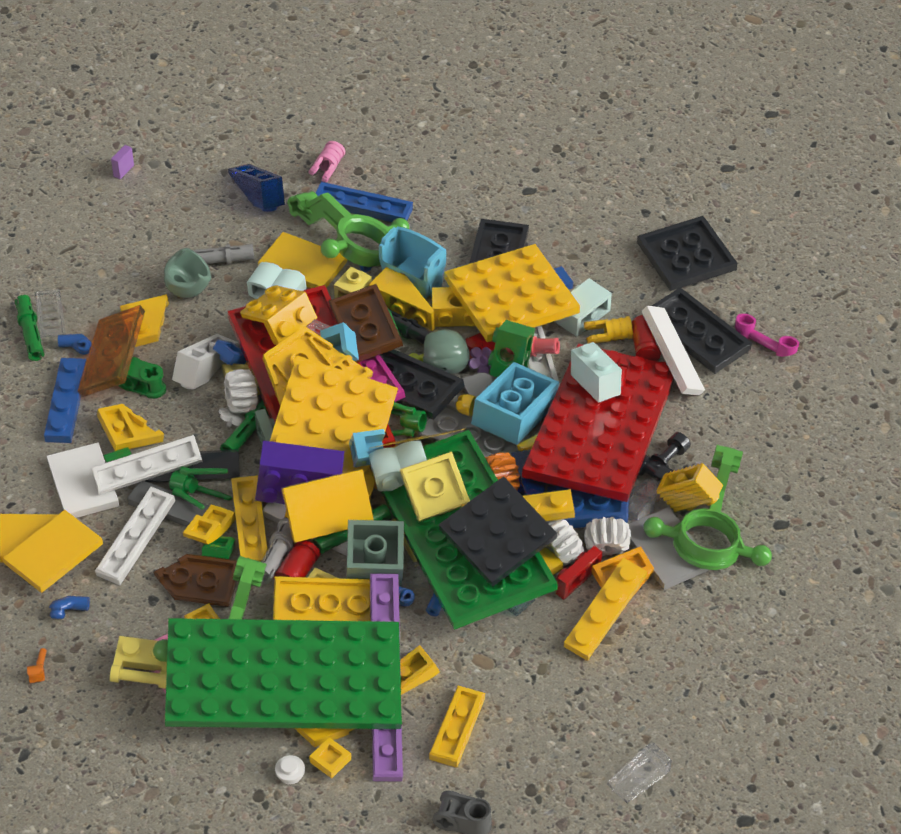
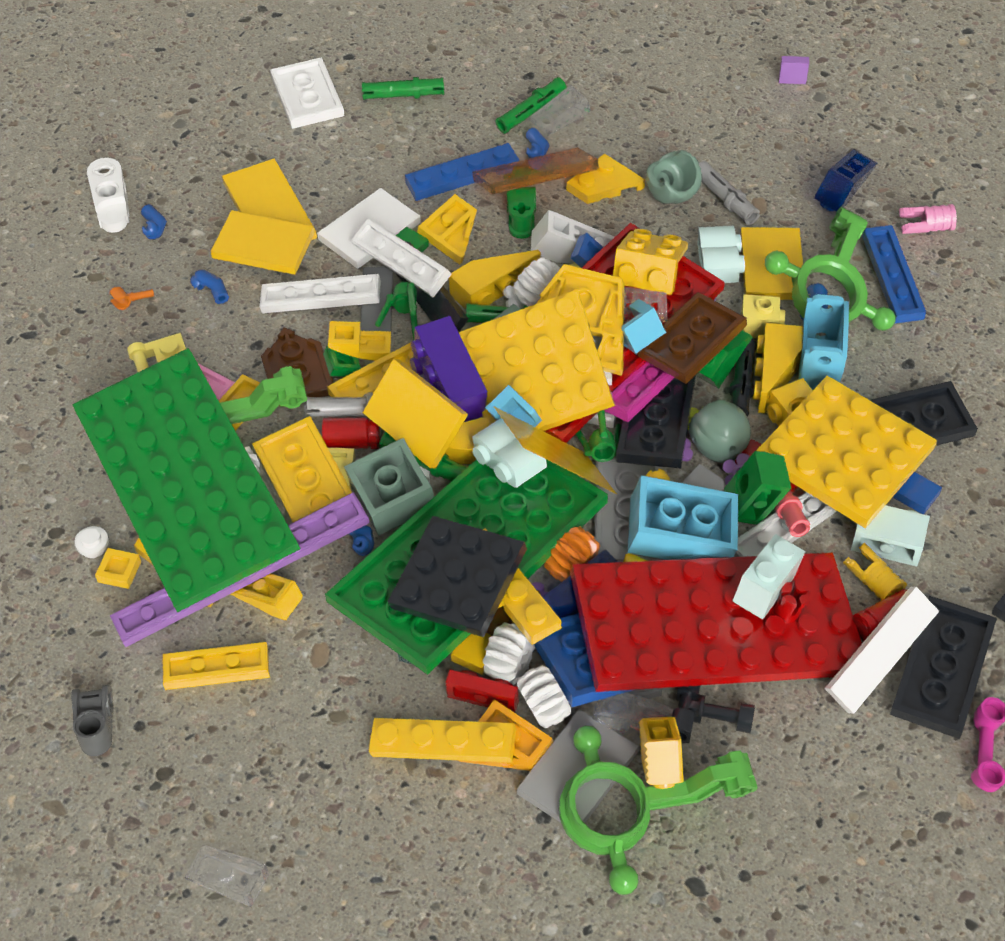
camera: 65 degrees right, 5 degrees up
(203, 420) = (485, 279): none -> yellow slope
(434, 486) = (492, 492): light yellow plate -> none

